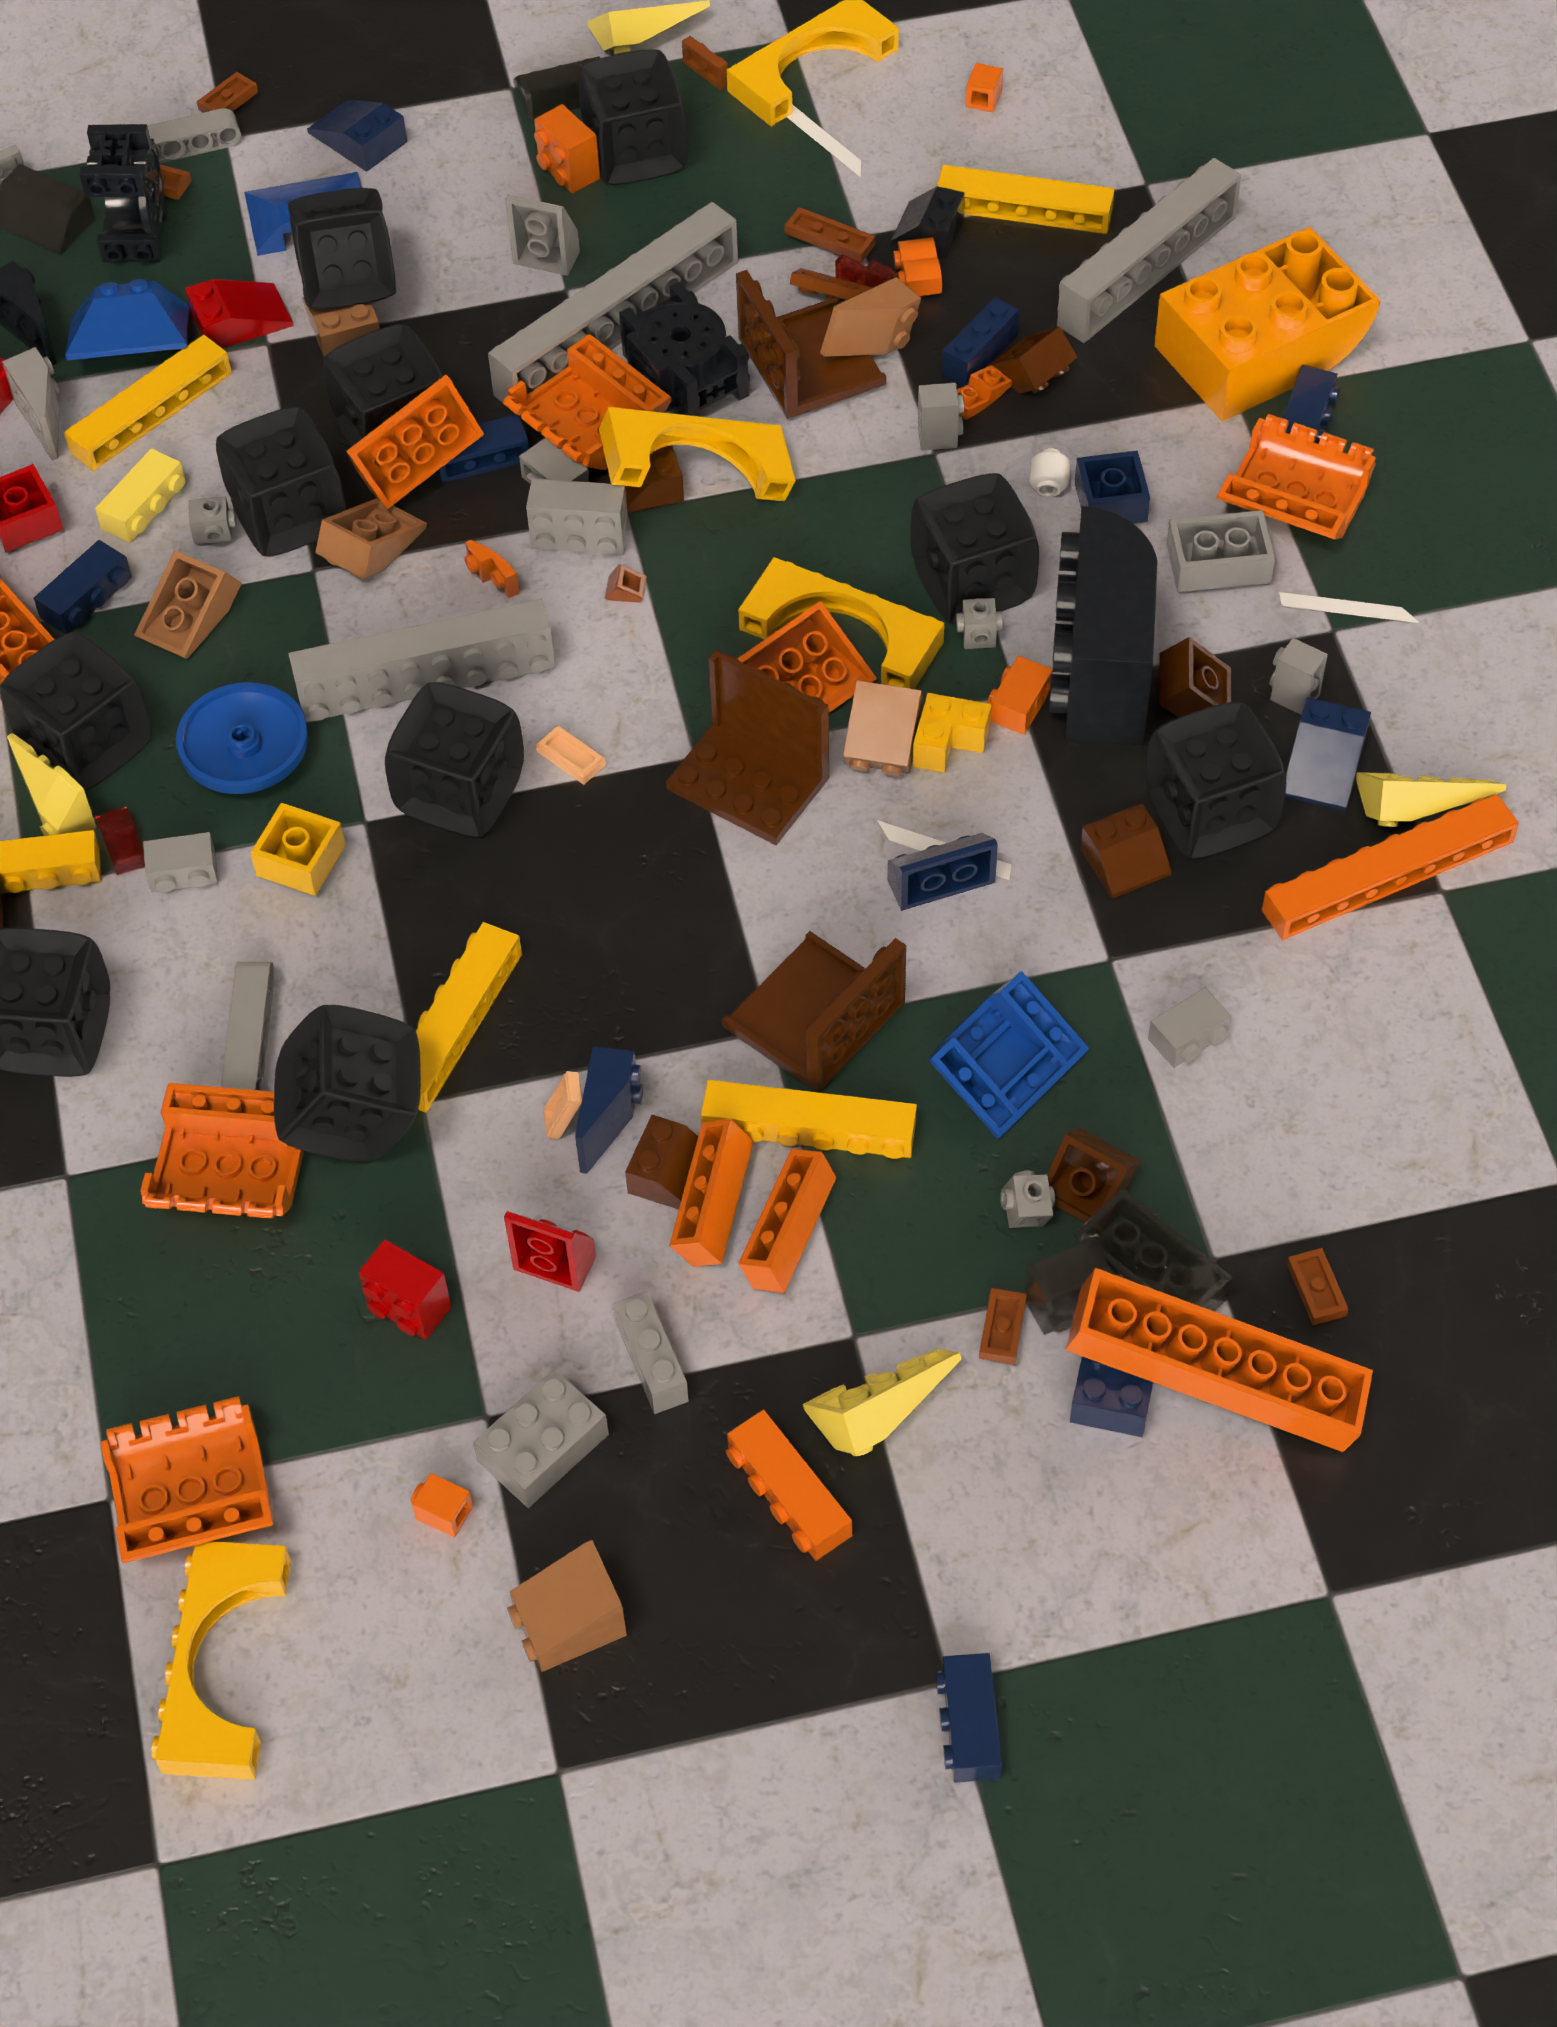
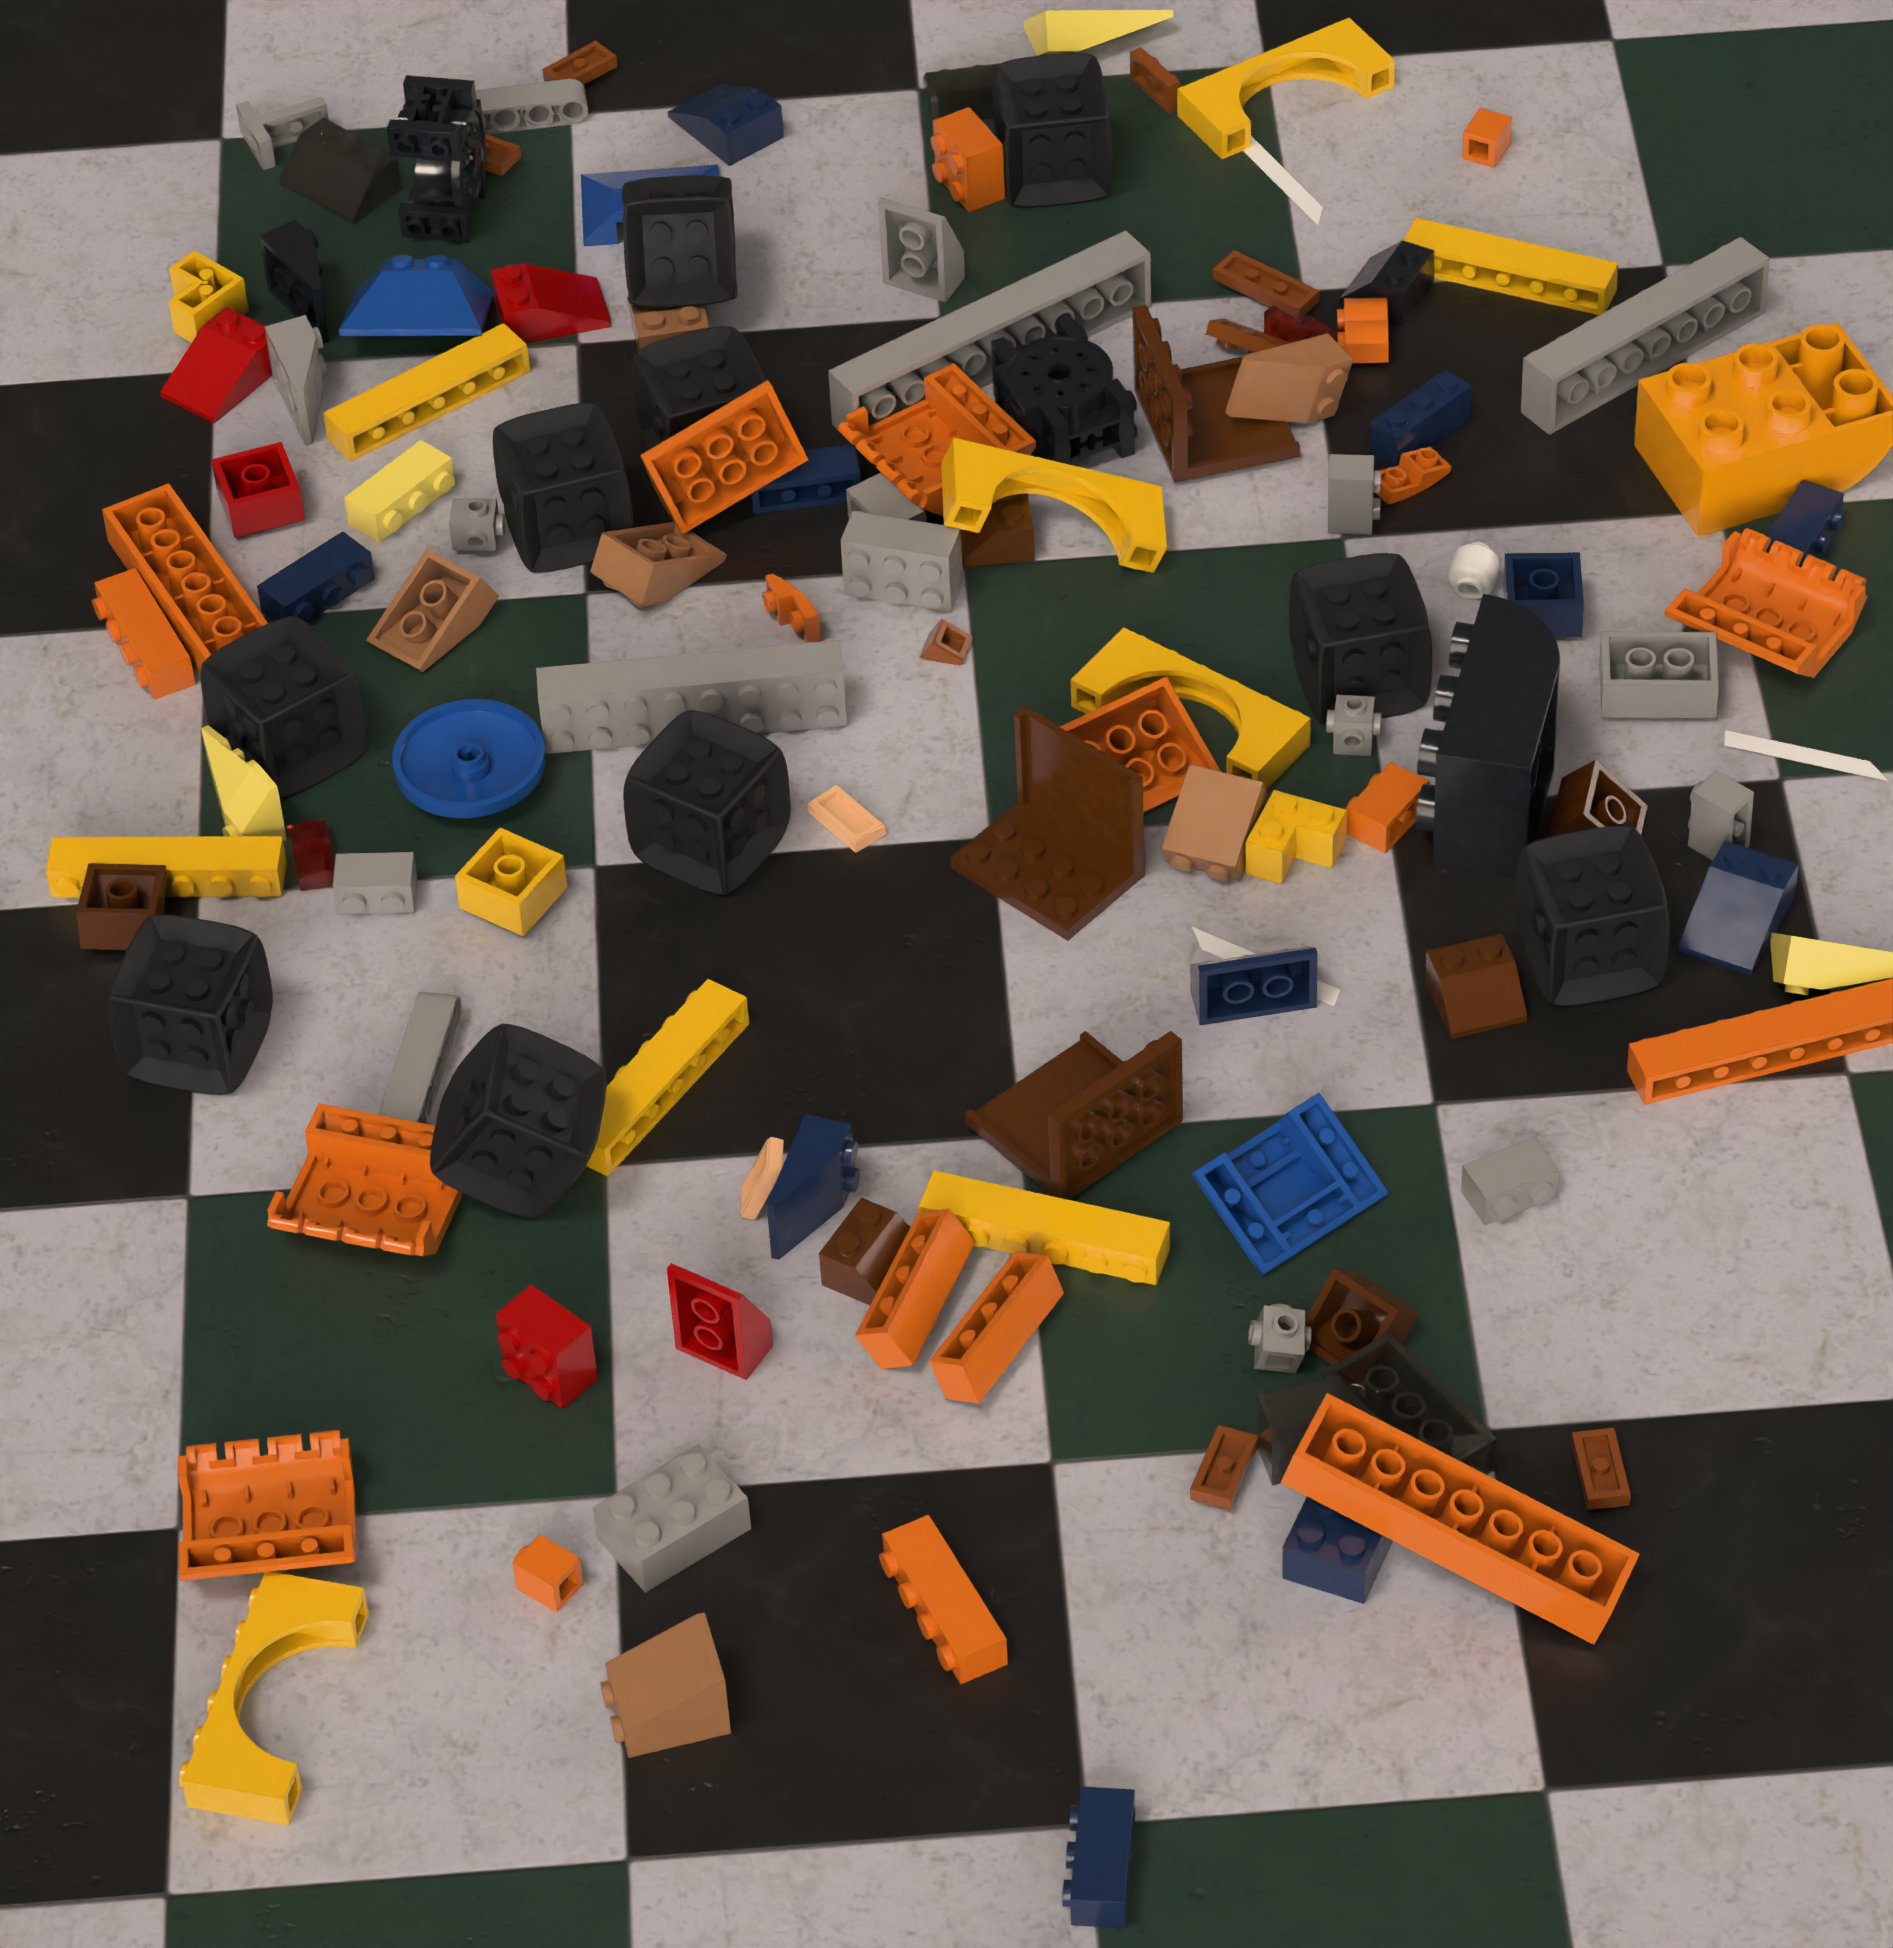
camera: 10 degrees right, 10 degrees down
(651, 1352) = (813, 1445): light grey brick -> none
(869, 1413) = (1039, 1539): light yellow wedge -> none
(1036, 360) = (1484, 446): reddish brown slope -> none

